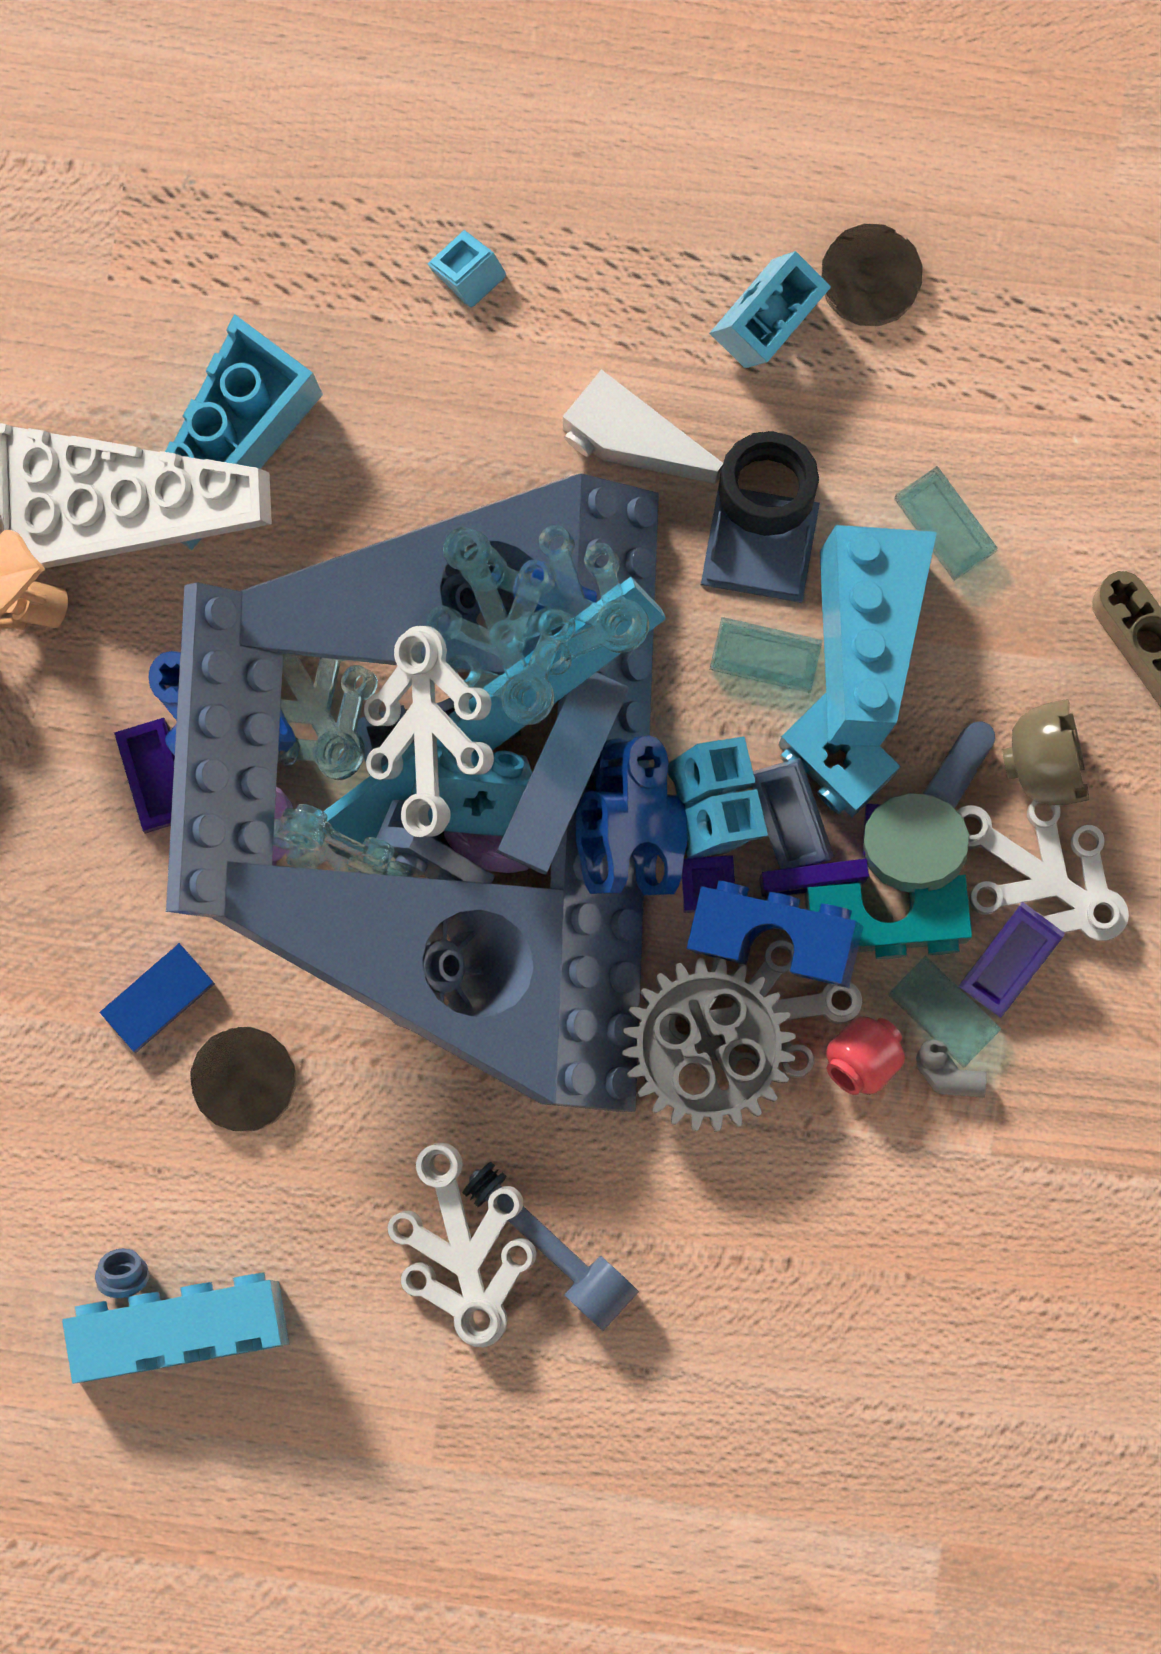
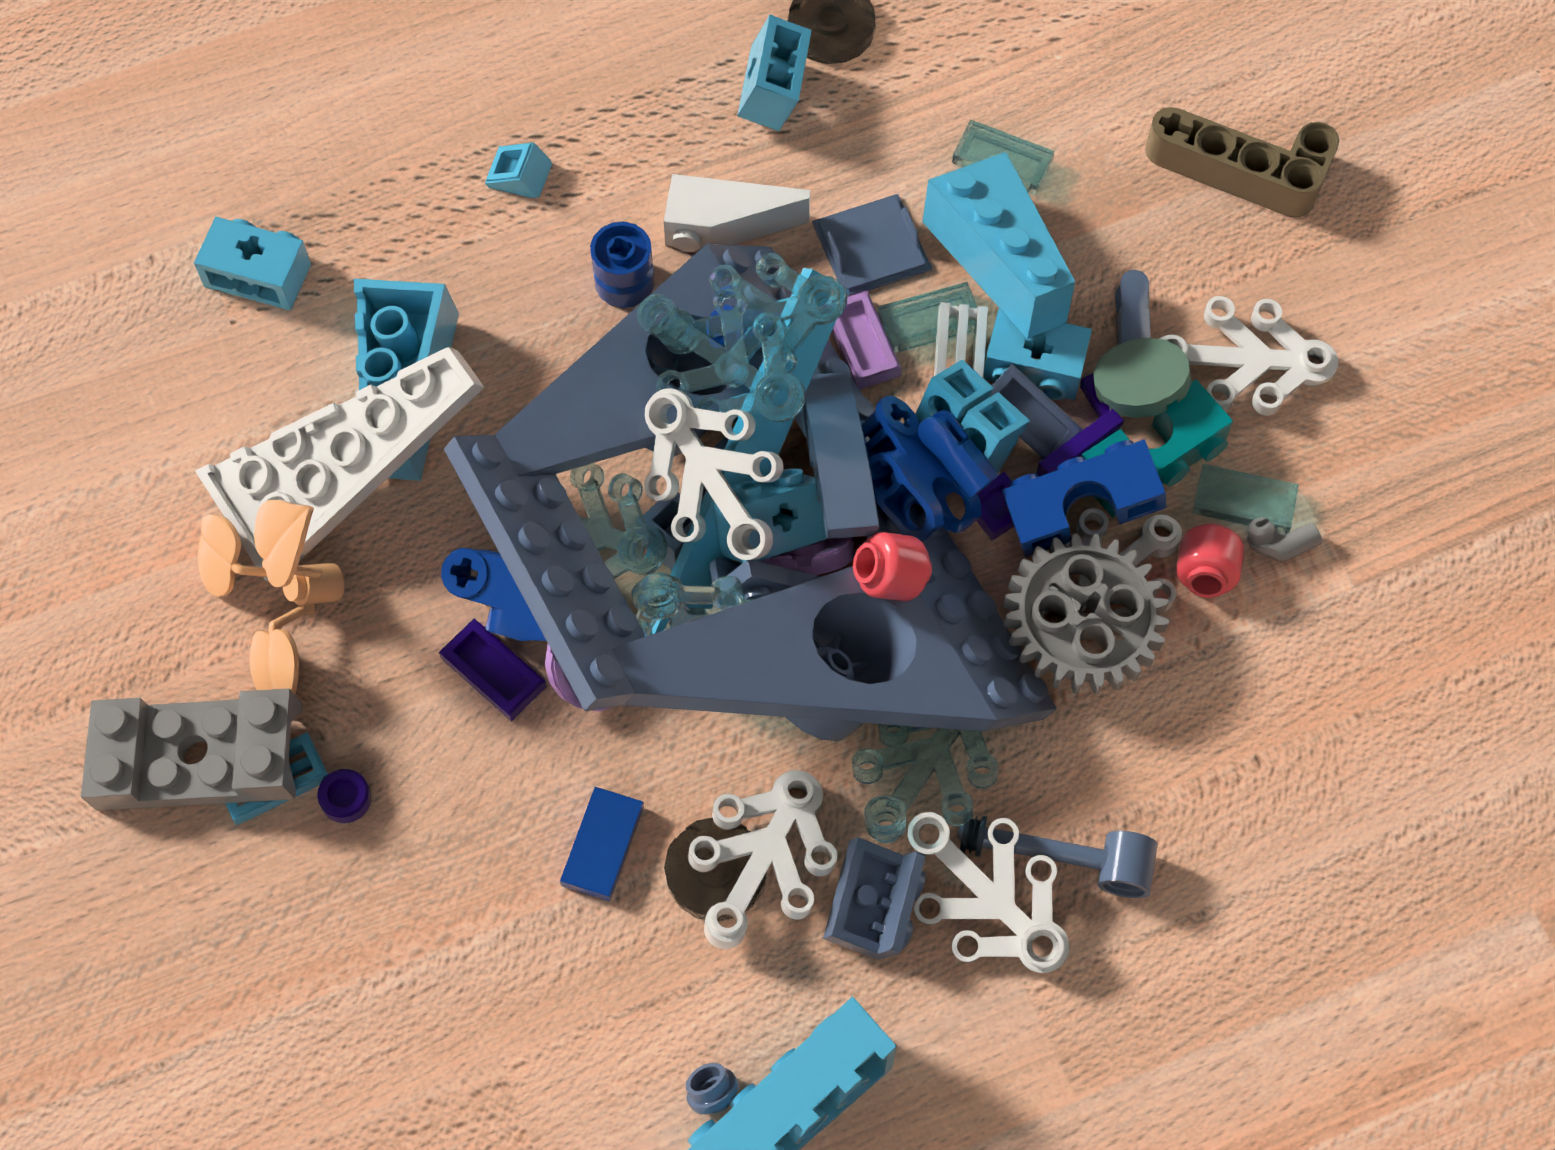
camera: 30 degrees left, 15 degrees down
(167, 258) = (253, 262): none -> medium azure brick
(294, 1090) = (766, 848): none -> white plant
(360, 1192) = (875, 899): none -> sand blue bracket
(484, 1094) = (926, 757): none -> clear light blue plant
(500, 436) = (622, 264): none -> blue wheel
(542, 912) = (892, 566): none -> coral head
(681, 825) = (957, 452): none -> blue bar
(686, 640) = (865, 343): none -> lavender tile
(776, 448) = (847, 167): black tyre -> none
(793, 673) = (963, 313): none -> white tile
(1011, 959) = (1272, 426): dark purple tile -> none
(1047, 755) = (1198, 263): dark tan cylinder -> none

